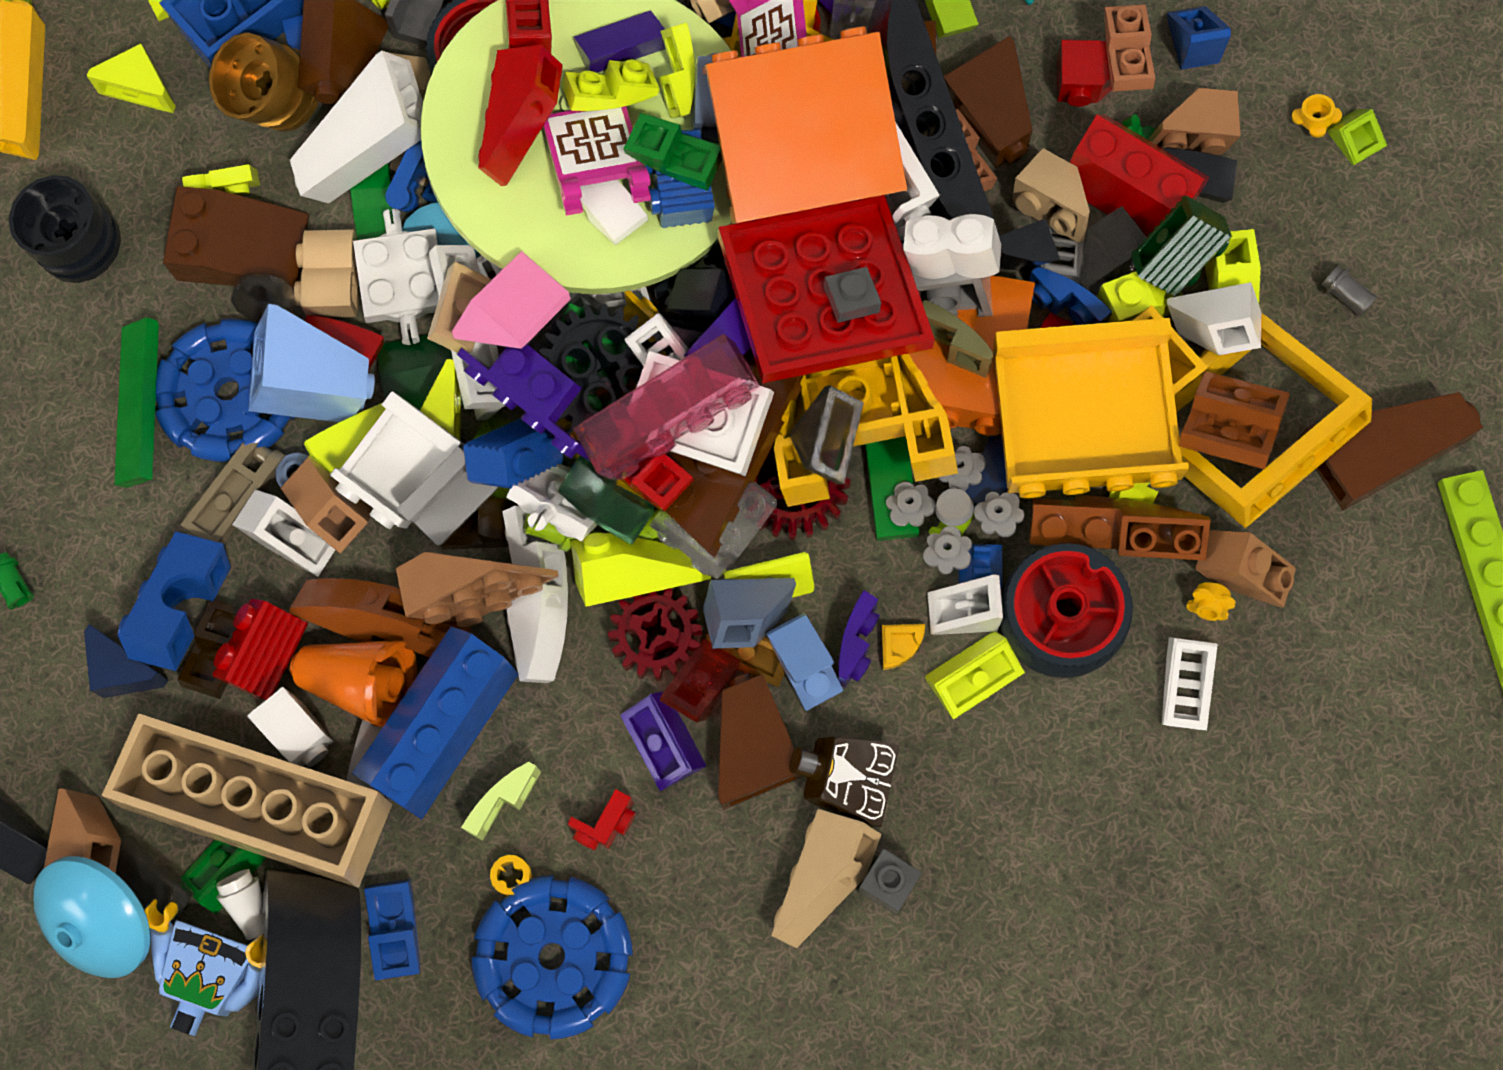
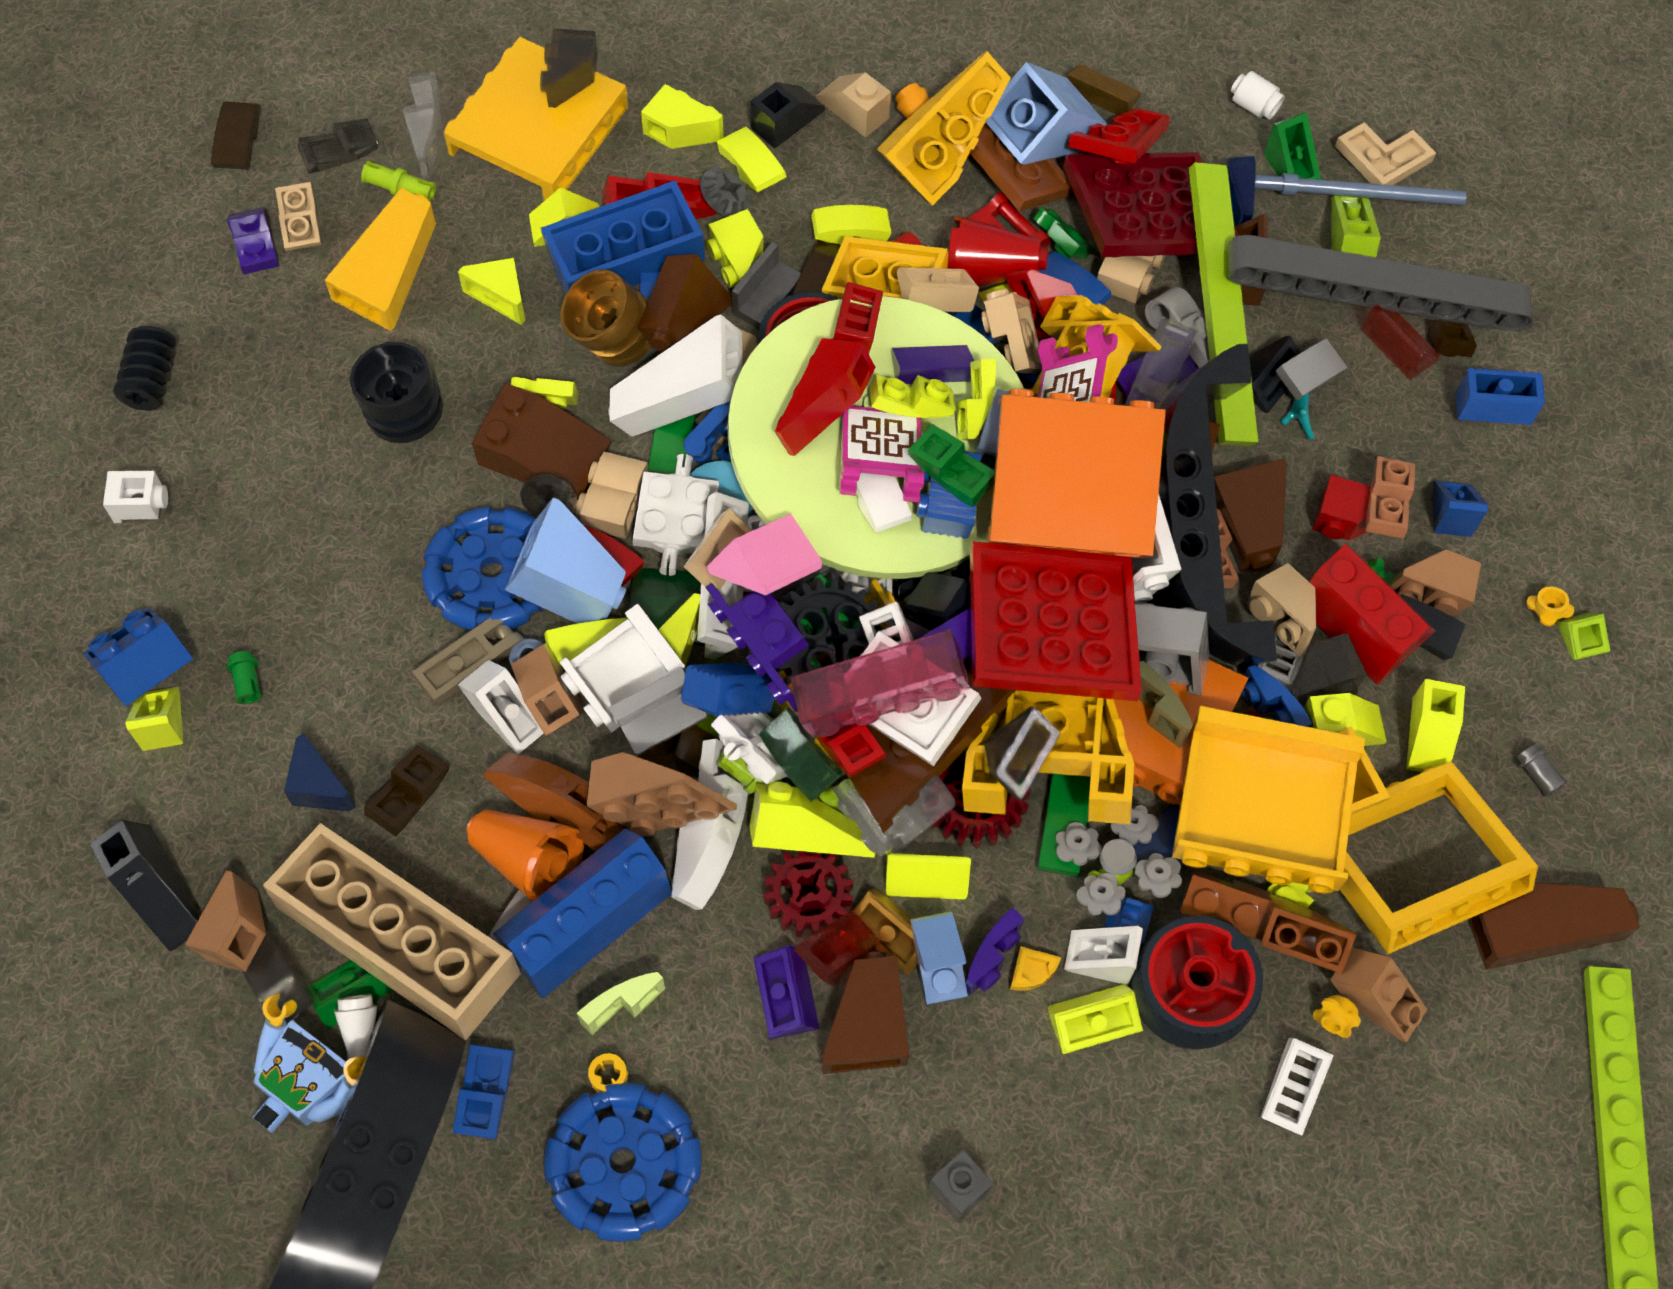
camera: 10 degrees right, 10 degrees down
(91, 917) = (216, 993): medium azure dish -> none
(136, 403) = (408, 557): green tile -> none
(183, 571) = (361, 751): blue arch -> none
(258, 648) = (445, 799): red brick -> none
(291, 728) = (451, 877): white slope -> none
(615, 819) = (719, 1050): red bracket -> none
(745, 609) = (898, 892): sand blue slope -> none
(828, 870) = (903, 1159): tan slope -> none
(848, 776) = (948, 1075): dark brown torso -> none
(852, 294) = (1077, 631): dark grey plate -> none
(946, 247) = (1175, 615): white brick -> none
(1181, 246) = (1393, 682): dark green brick -> none
(1219, 319) = (1412, 757): white slope -> none
(1234, 420) = (1402, 849): dark orange slope -> none

